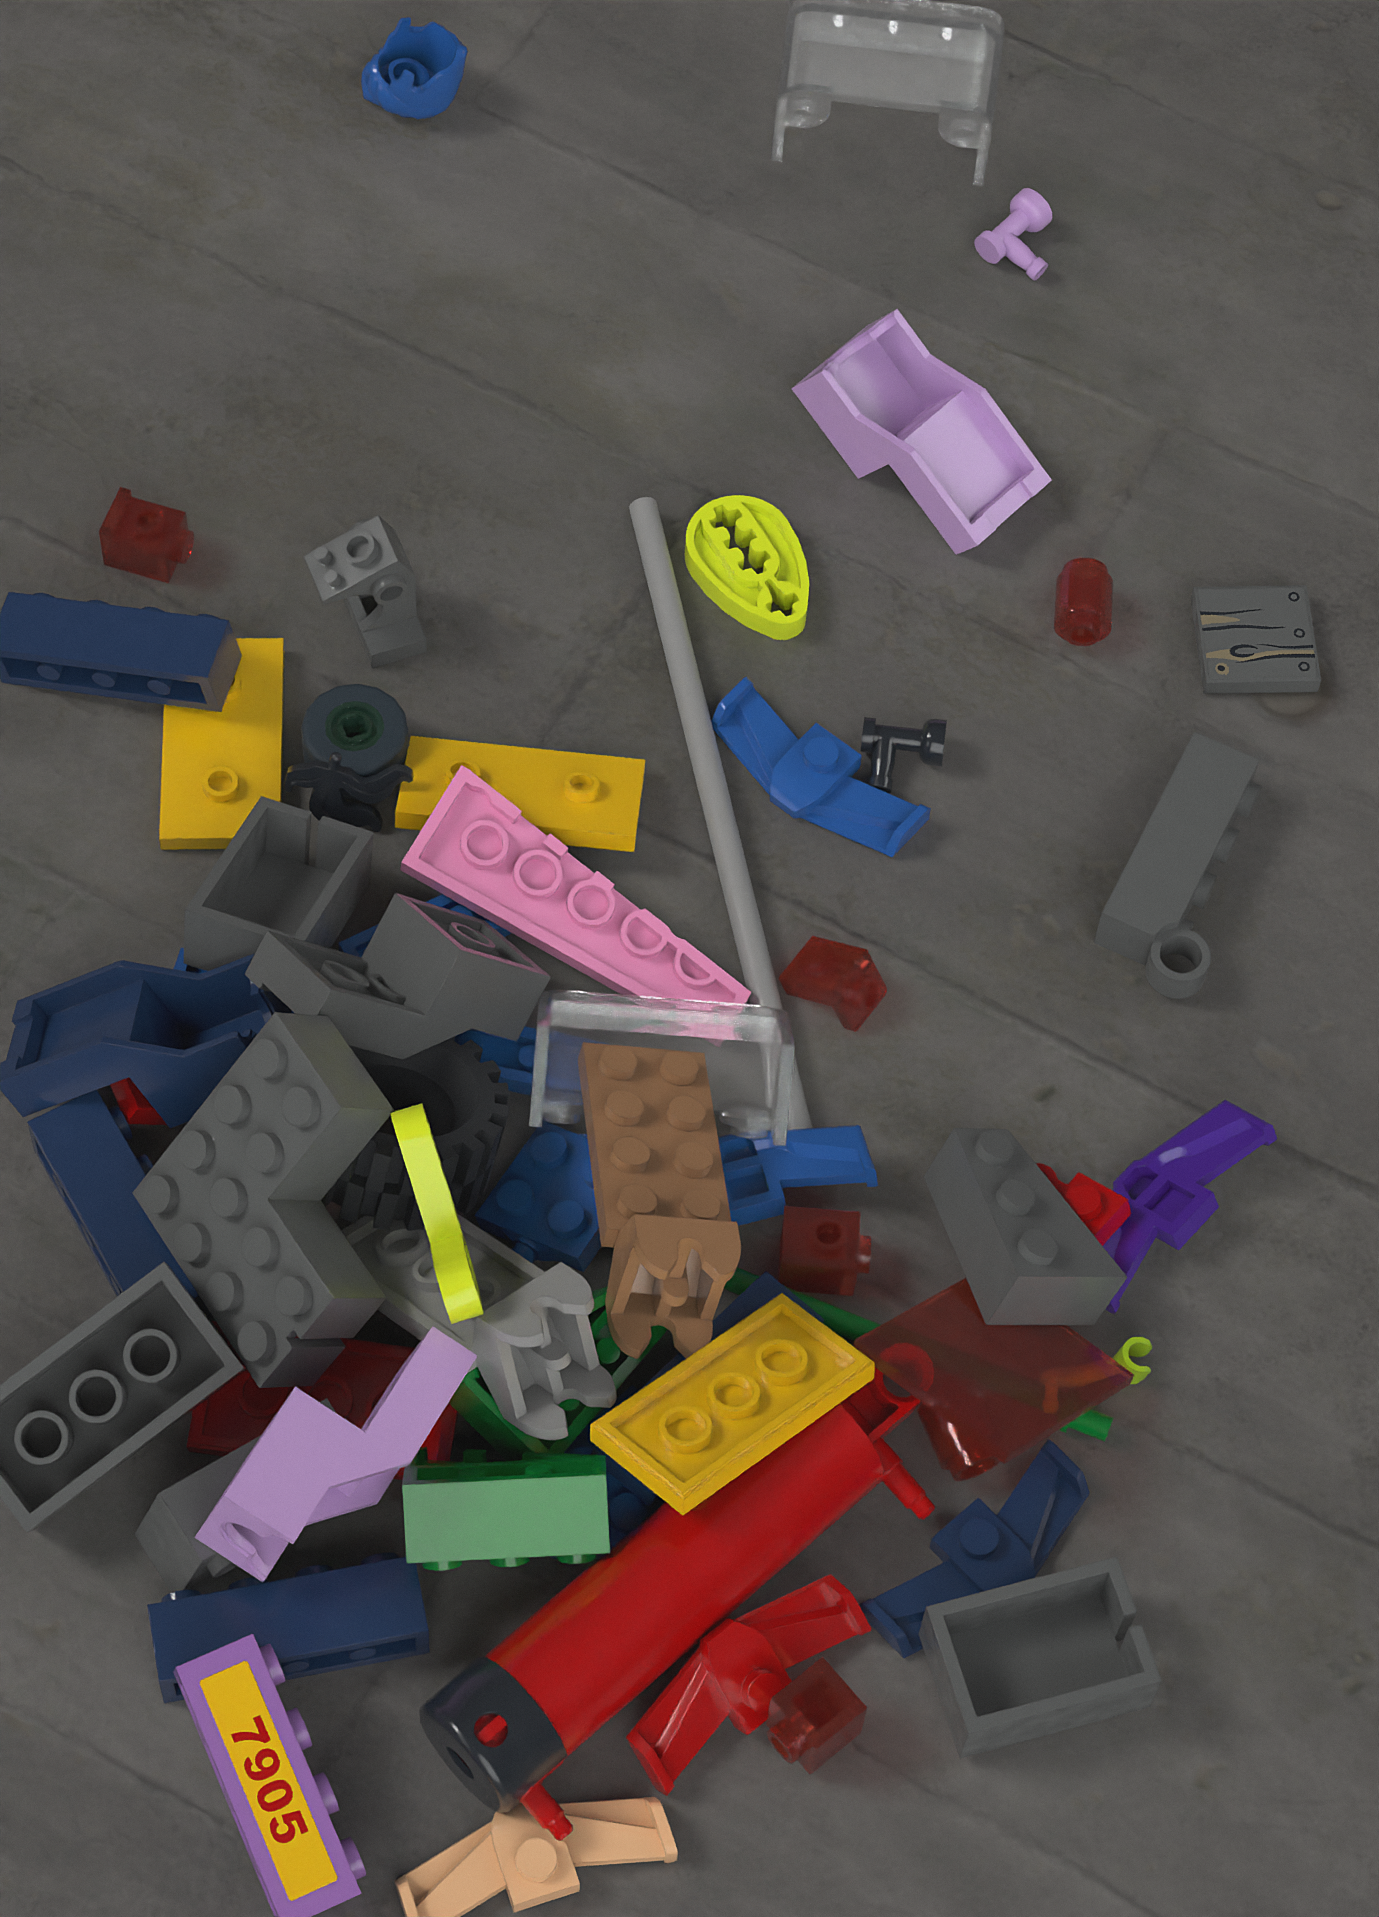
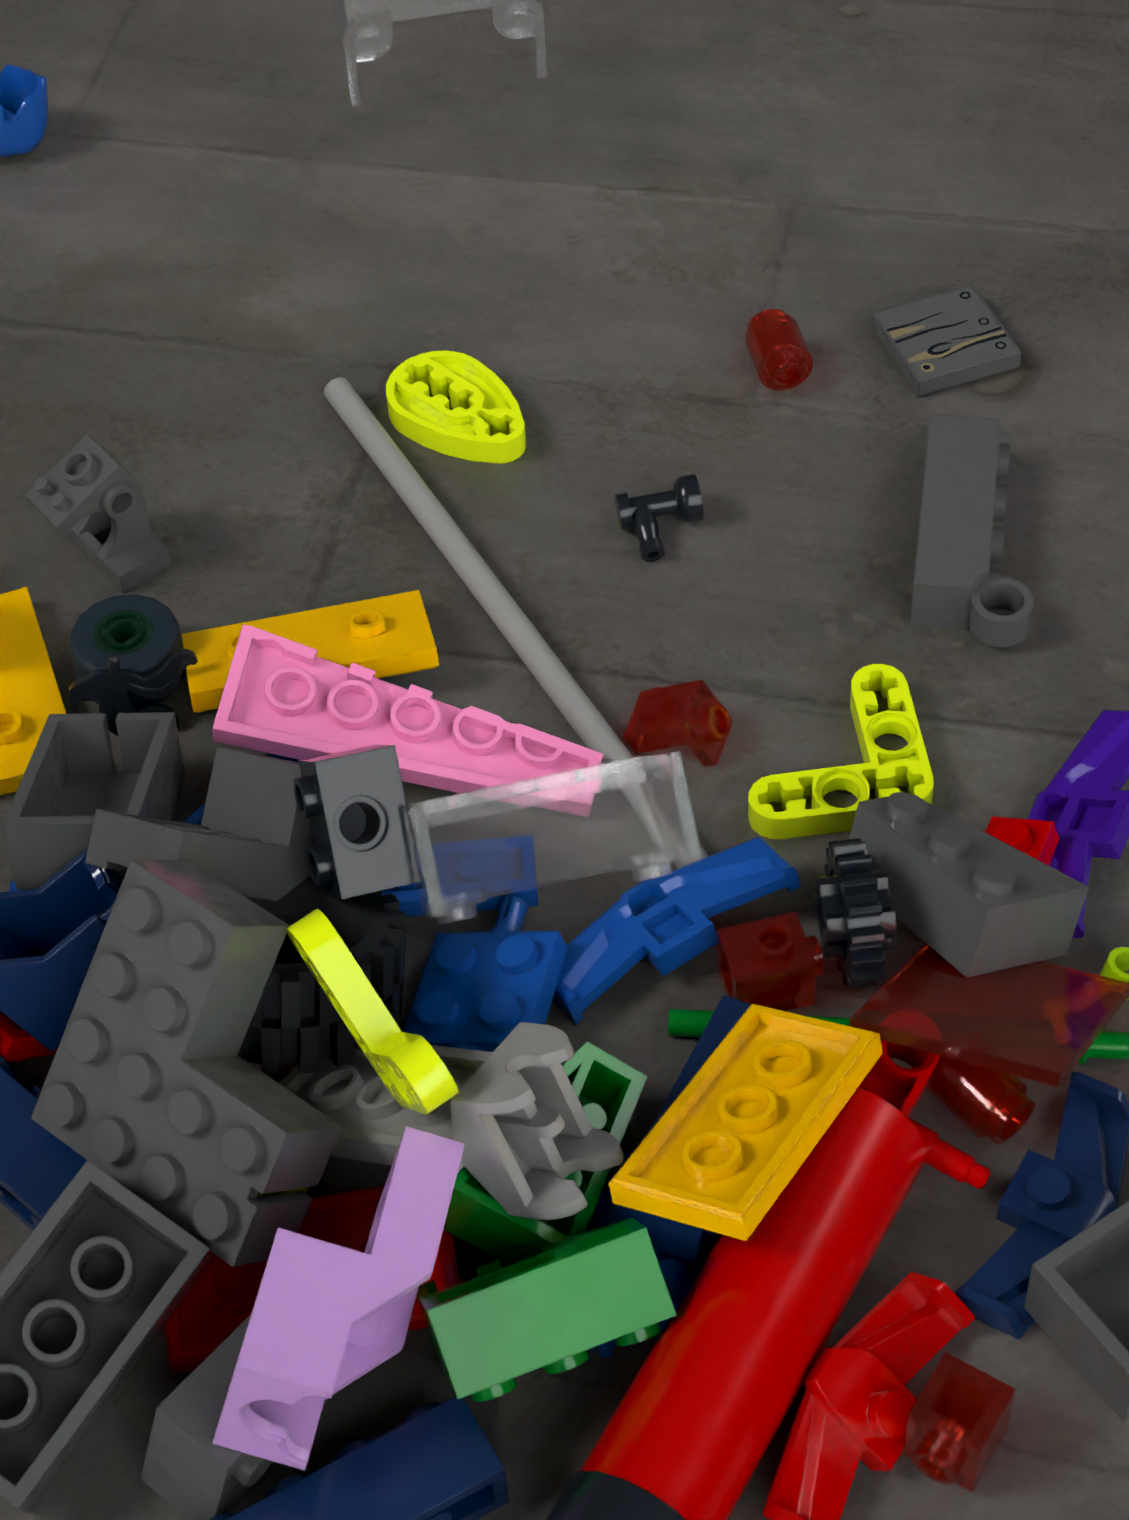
camera: 10 degrees left, 10 degrees down
(504, 1051) = (385, 850): none -> brick
(657, 1192) = (593, 949): medium nougat hinge -> none
(813, 774) = (585, 559): blue plate -> none
(911, 1231) = (854, 913): none -> black gear
(937, 429) = (584, 241): lavender piece -> none
(1003, 1090) = (880, 771): none -> neon yellow beam
(1028, 213) = (596, 80): lavender piece -> none

